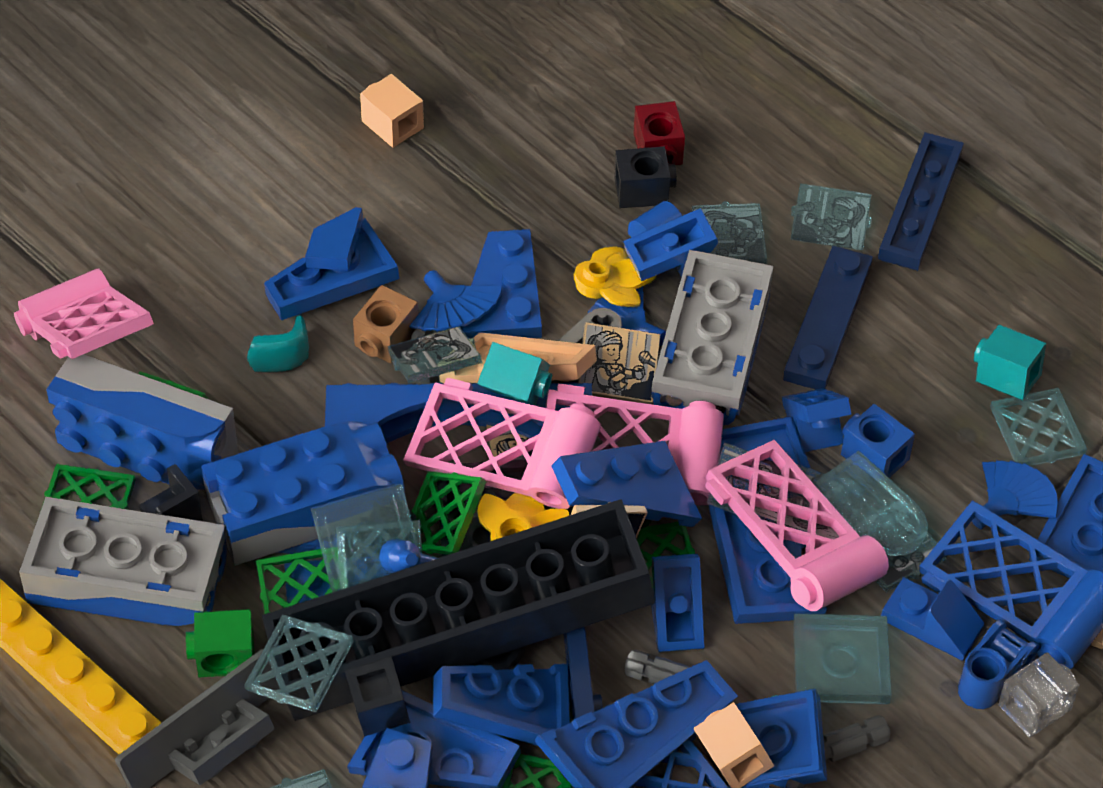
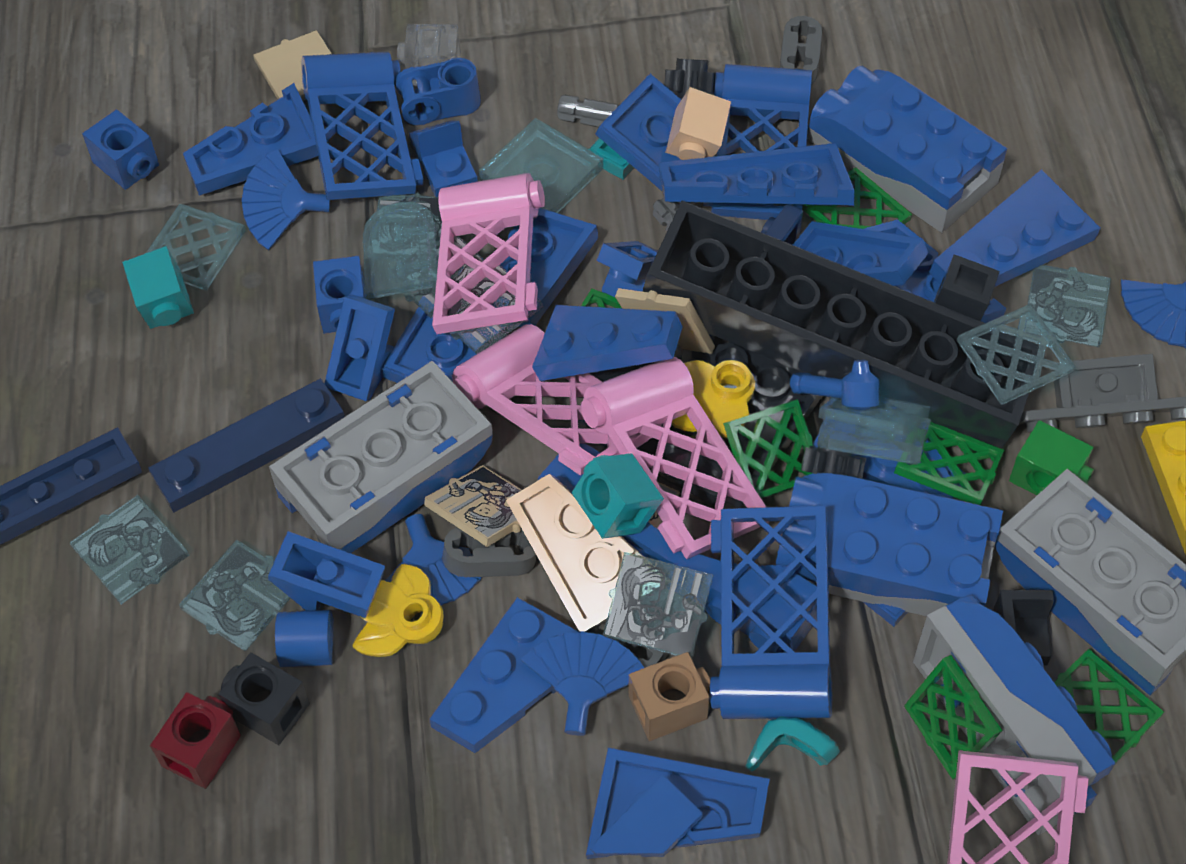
camera: 140 degrees left, 5 degrees up
(326, 357) = (764, 682): none -> blue piece

